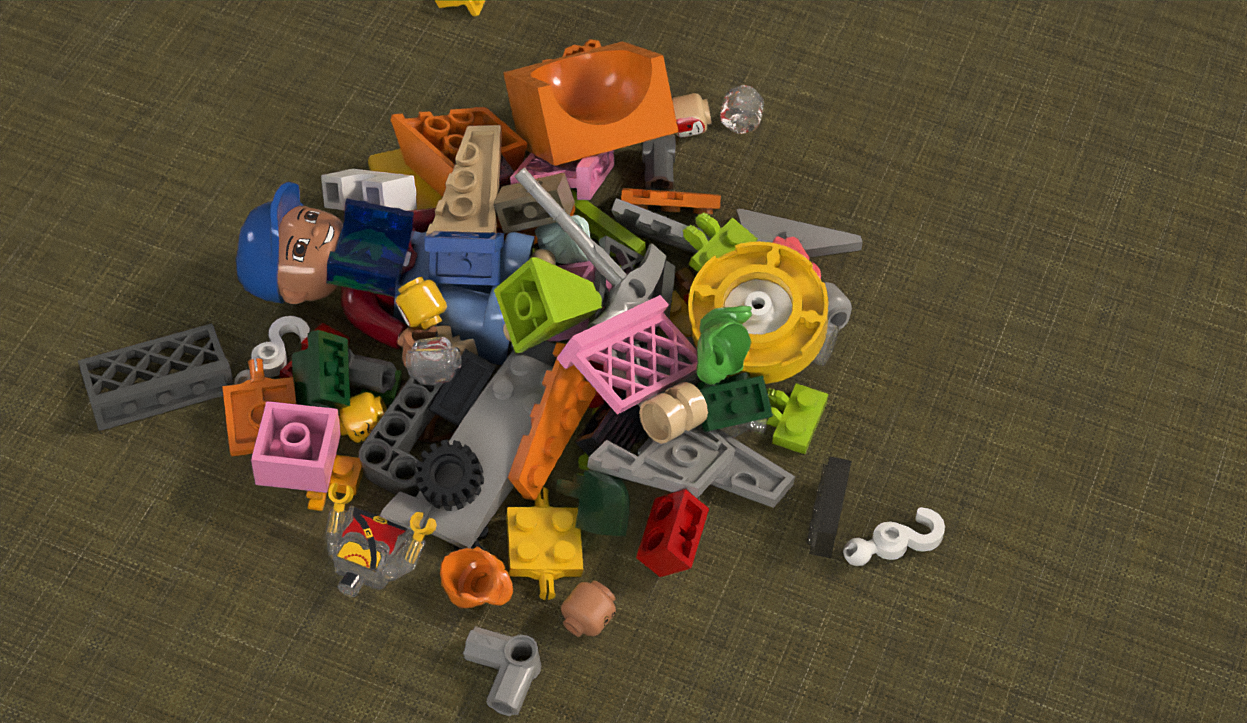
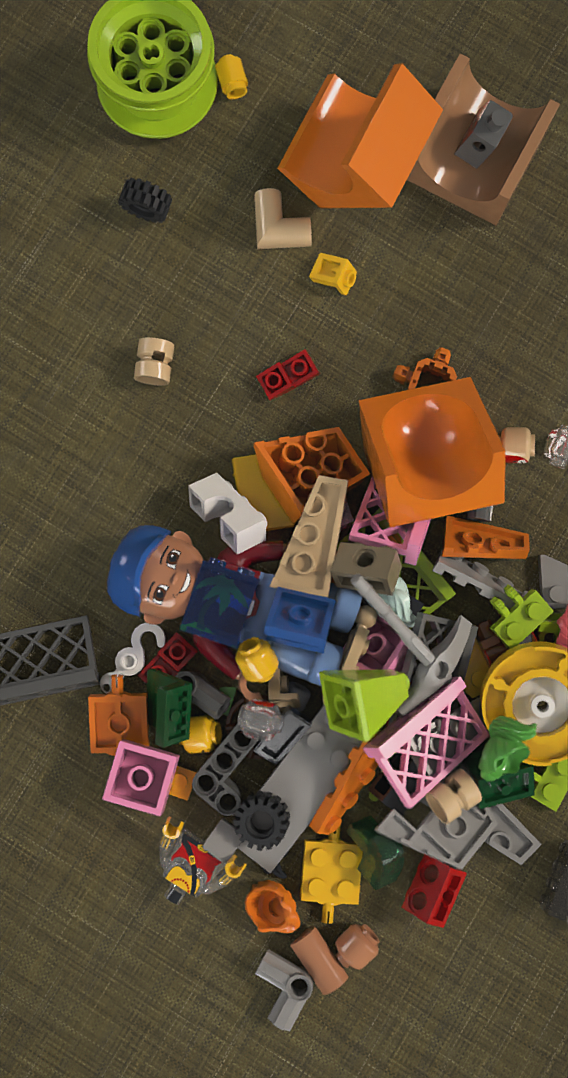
camera: 10 degrees right, 30 degrees up
(268, 83) = (154, 371): none -> tan wheel
(427, 85) = (288, 375): none -> red slope
(535, 620) = (319, 960): none -> nougat brick

